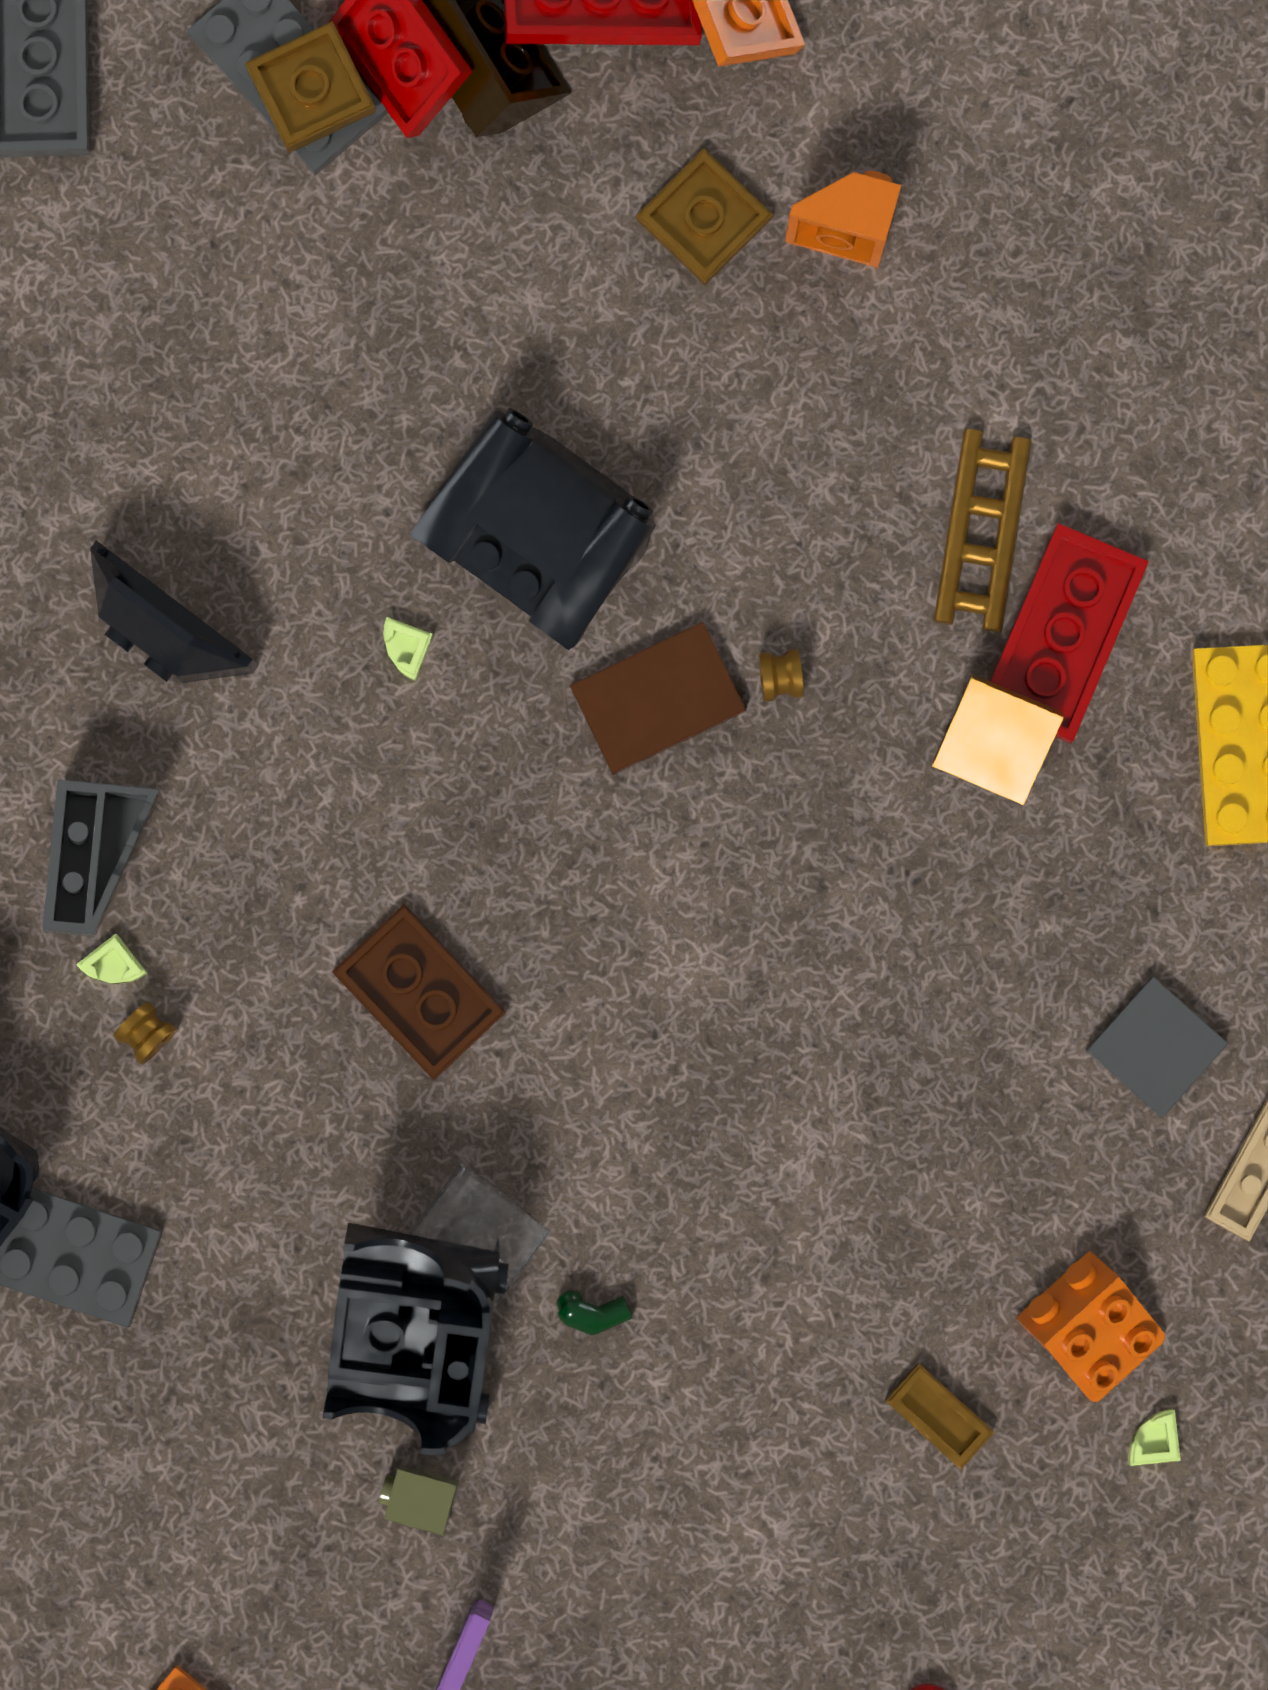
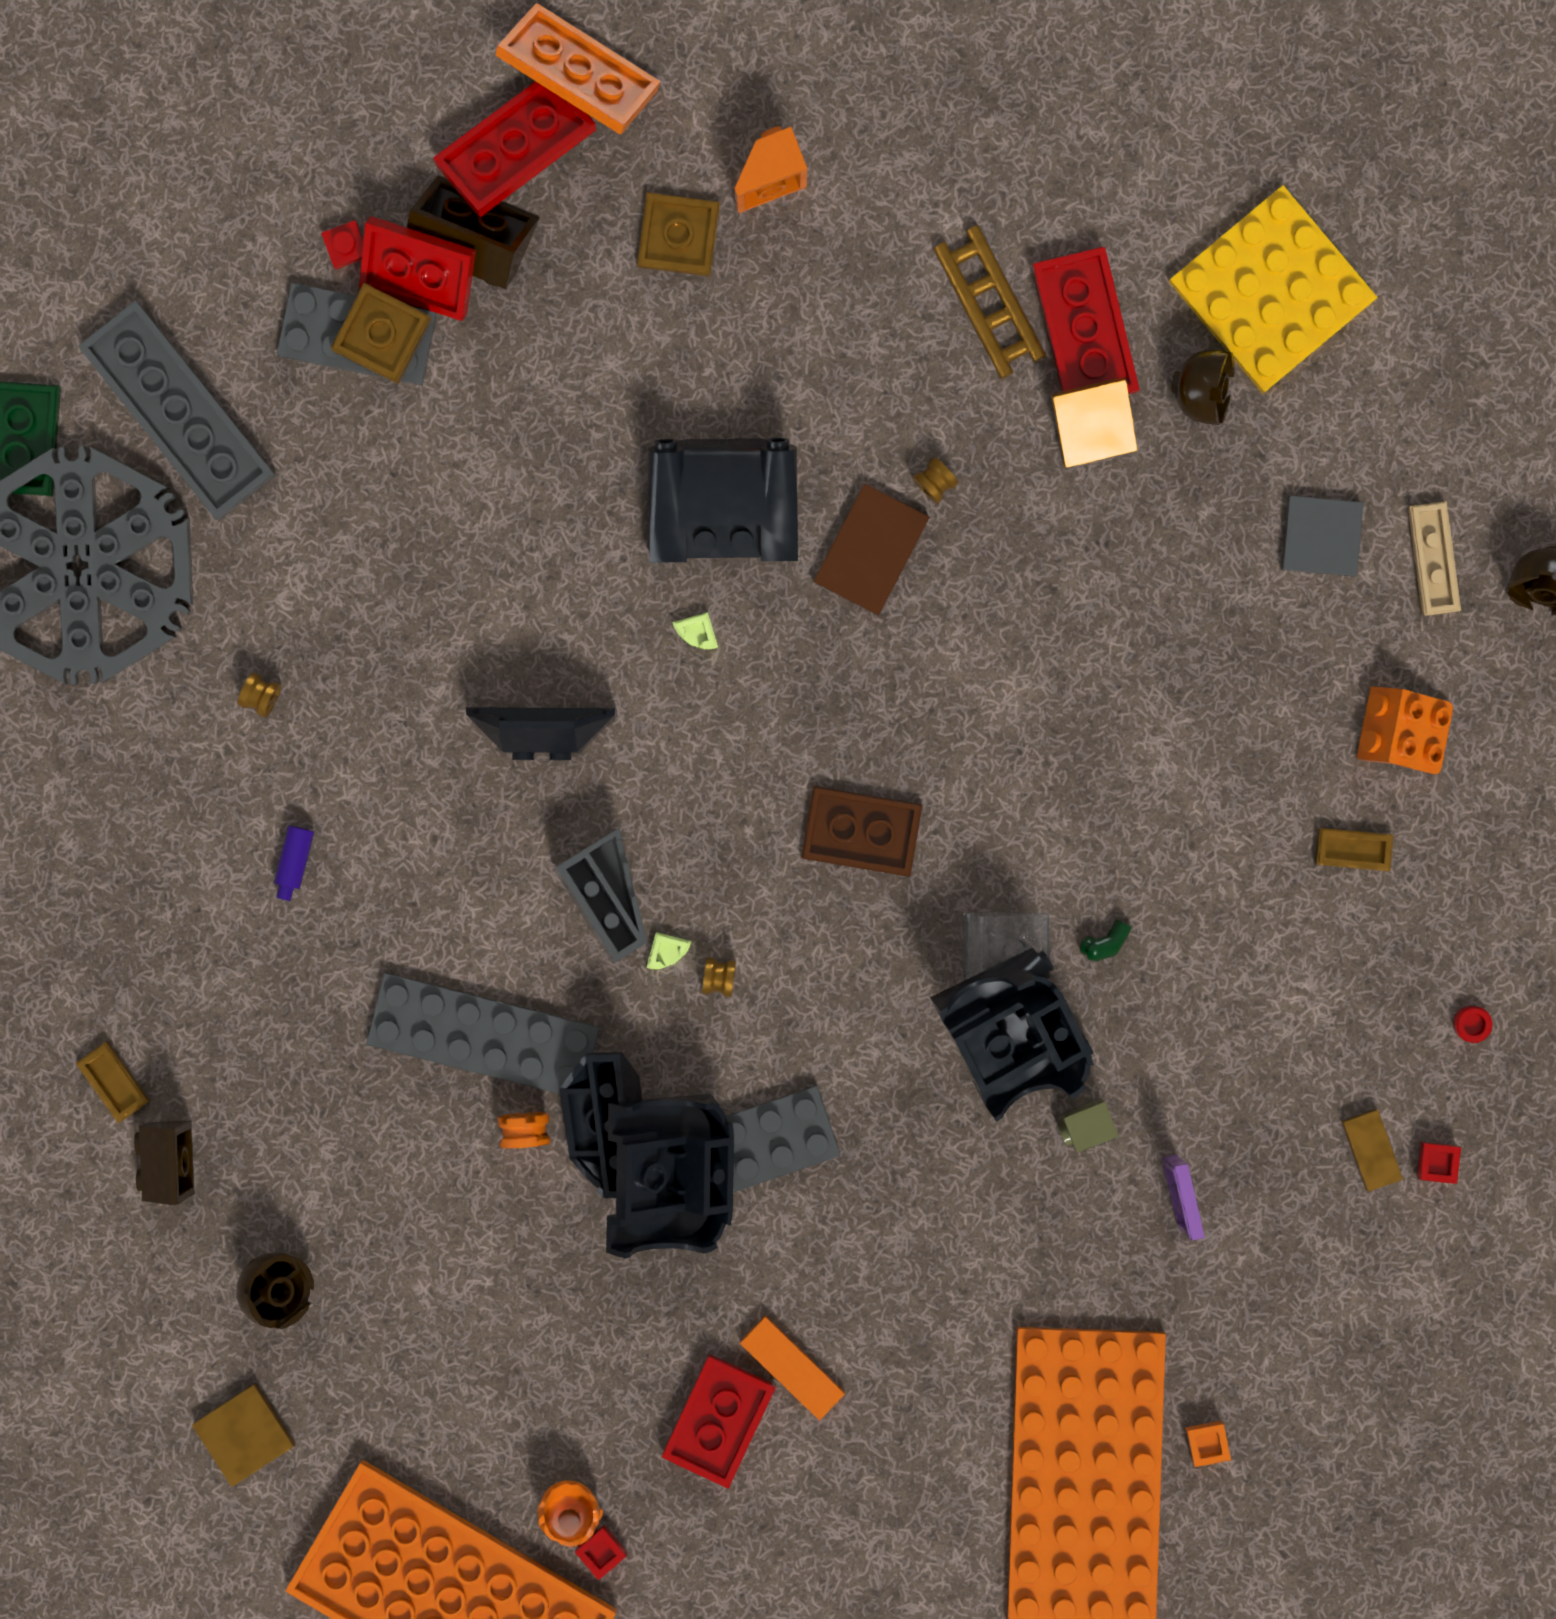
camera: 40 degrees left, 5 degrees up
(1147, 785) = (1204, 386): none -> dark brown cylinder
(1155, 1440) = (1490, 768): yellowish green tile -> none

